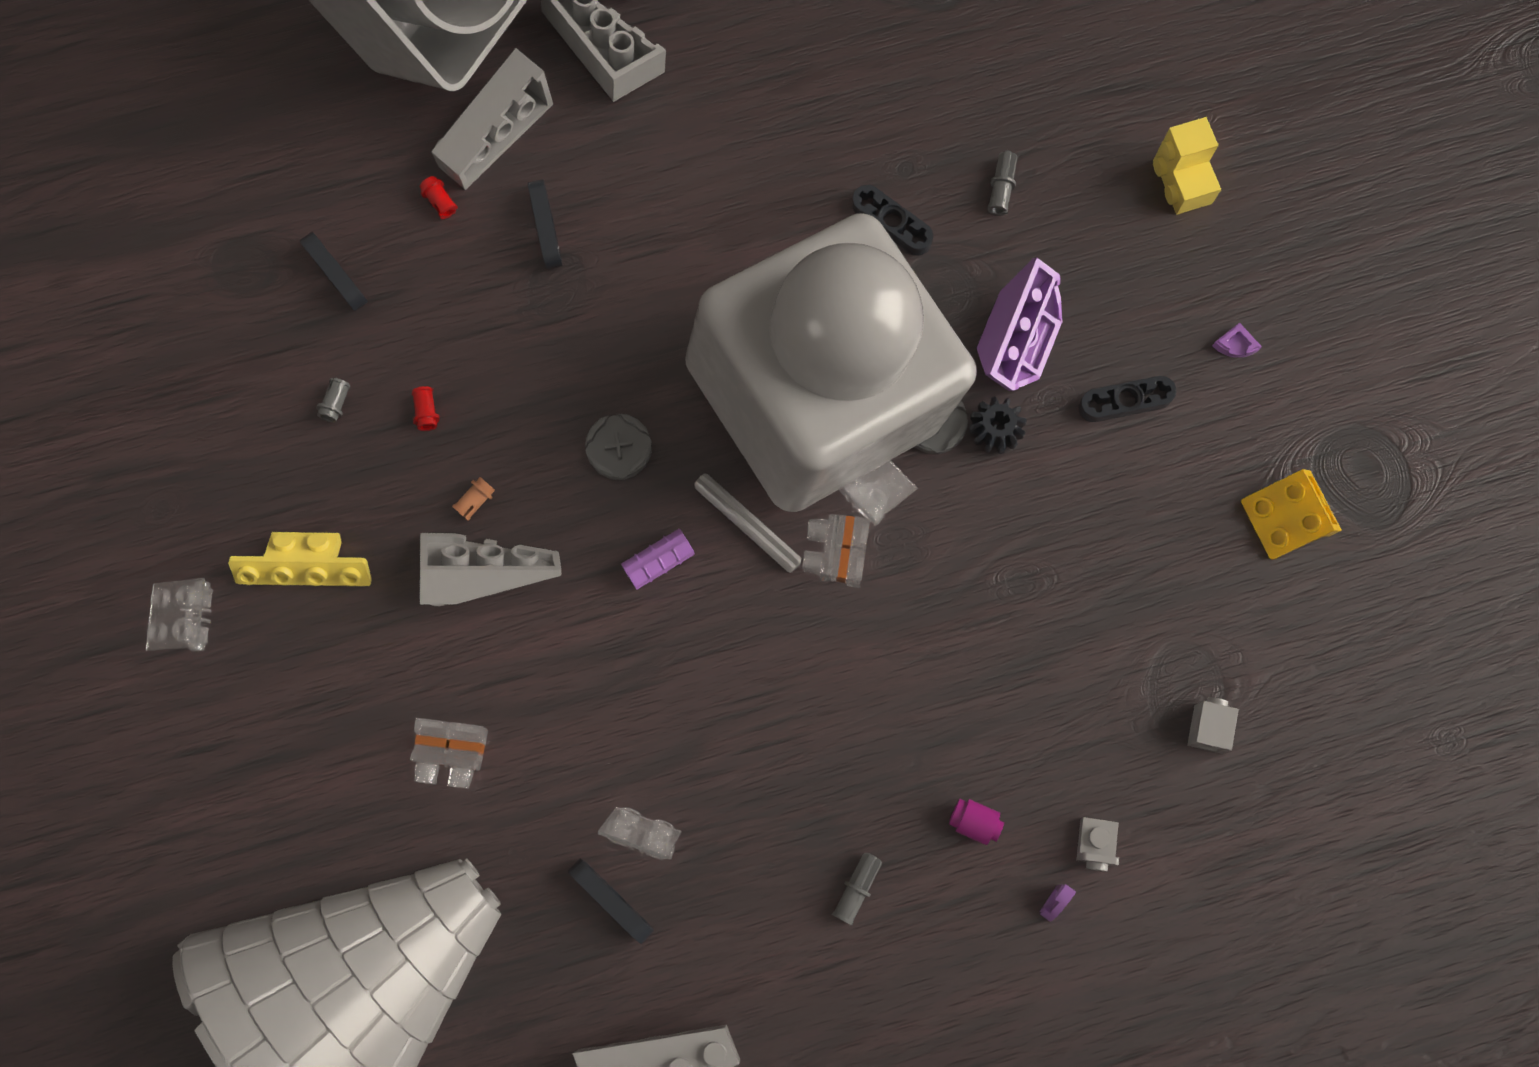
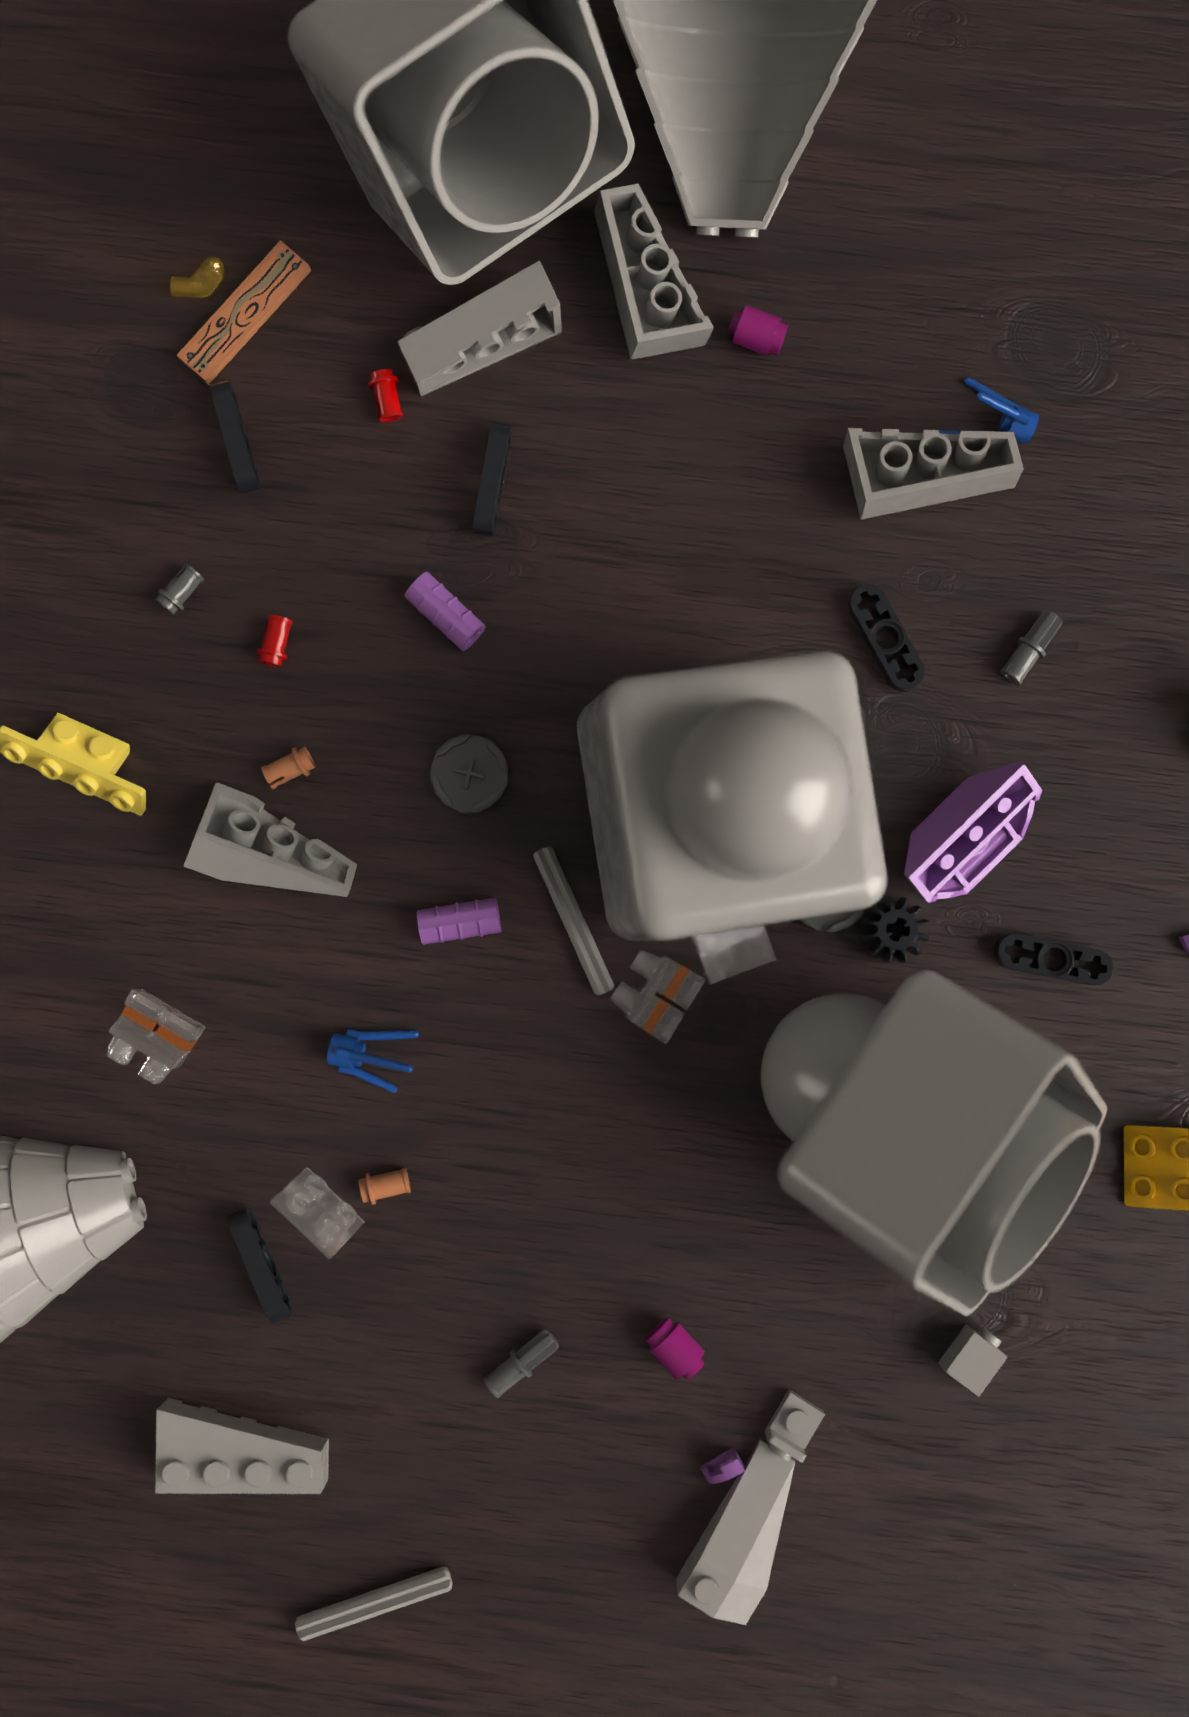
camera: 25 degrees right, 10 degrees up
(263, 174) = (202, 282): none -> clear yellow arm
(304, 182) = (244, 312): none -> nougat tile
(548, 333) = (444, 611): none -> medium lavender axle
(613, 696) = (348, 1051): none -> blue plant
(685, 792) = (384, 1185): none -> nougat pin
(699, 44) = (758, 330): none -> magenta brick
(868, 87) = (927, 468): none -> light grey wedge
(917, 34) = (1014, 417): none -> blue plant
(1099, 540) = (931, 1132): none -> light grey piece
(1099, 962) = (737, 1550): none -> light grey wedge

